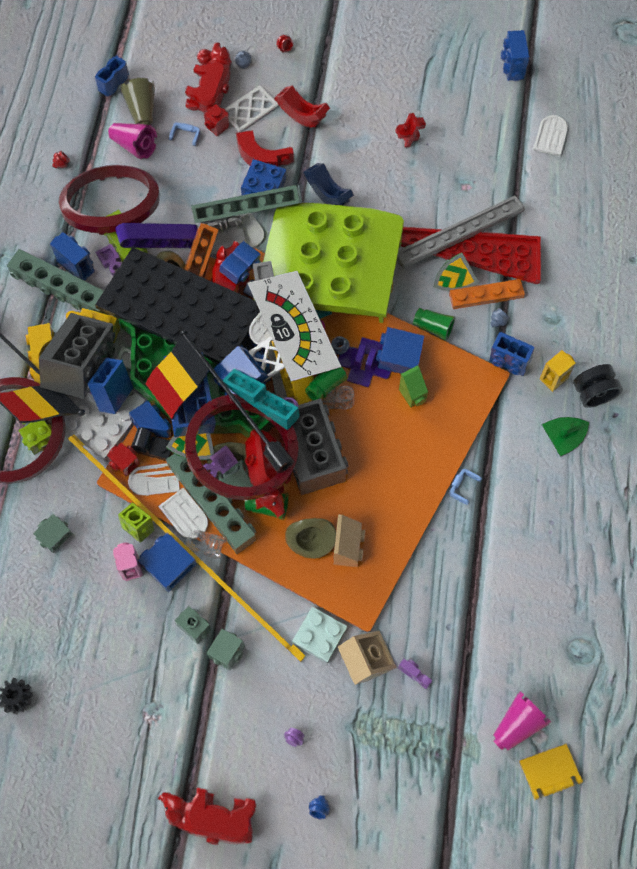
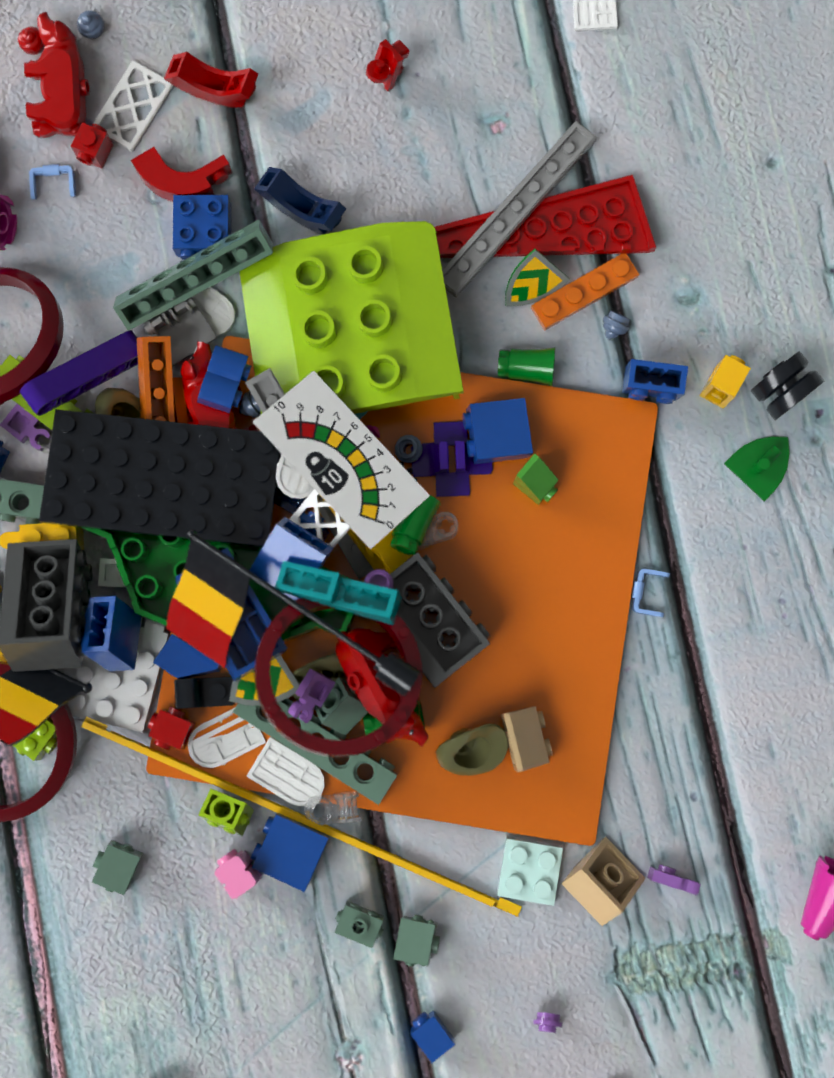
camera: 20 degrees left, 15 degrees up
(212, 716) = (431, 1035): none -> blue brick

